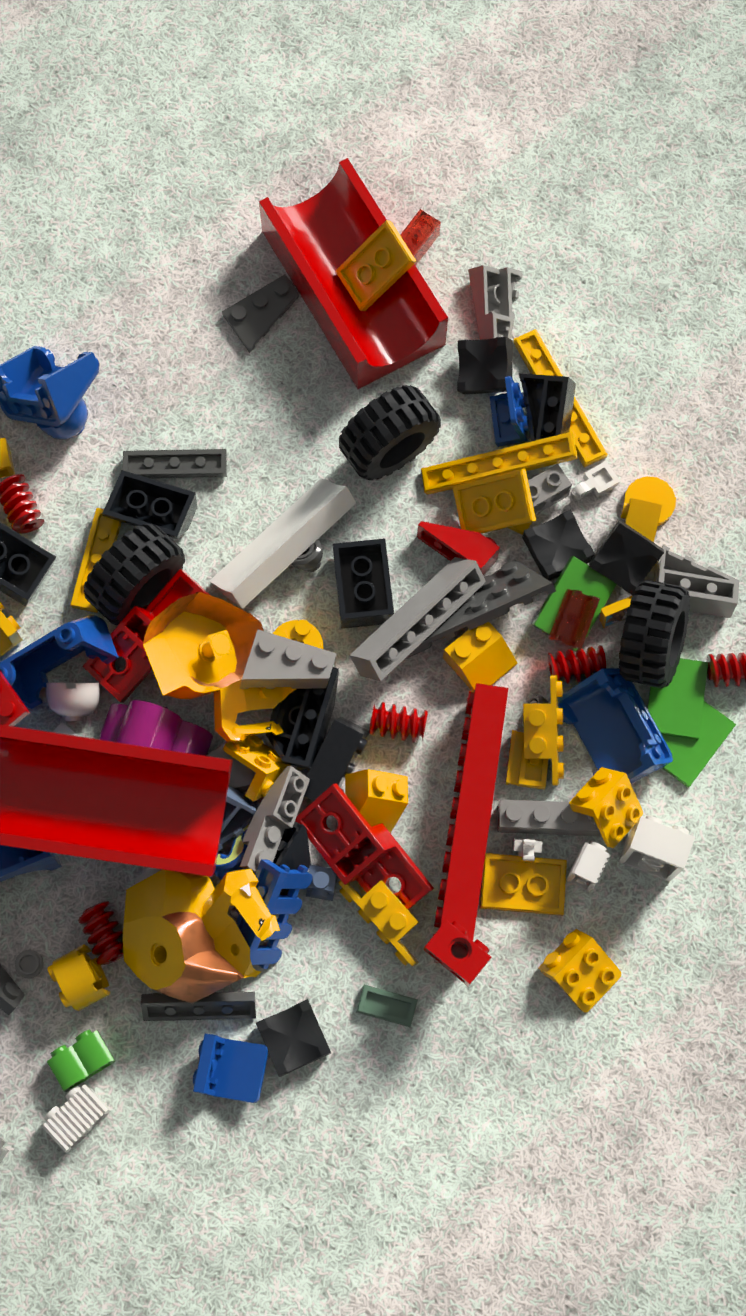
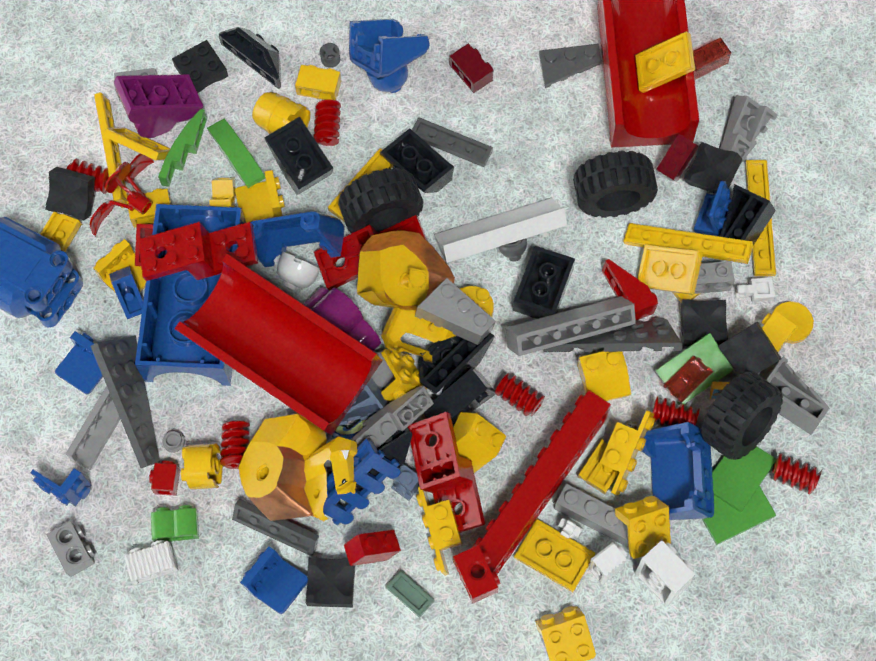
camera: 30 degrees right, 5 degrees down
(41, 1012) = (165, 478): none -> red brick
(154, 365) = (471, 67): none -> dark red brick
(322, 976) = (372, 547): none -> red brick
(440, 370) = (677, 157): none -> dark red brick

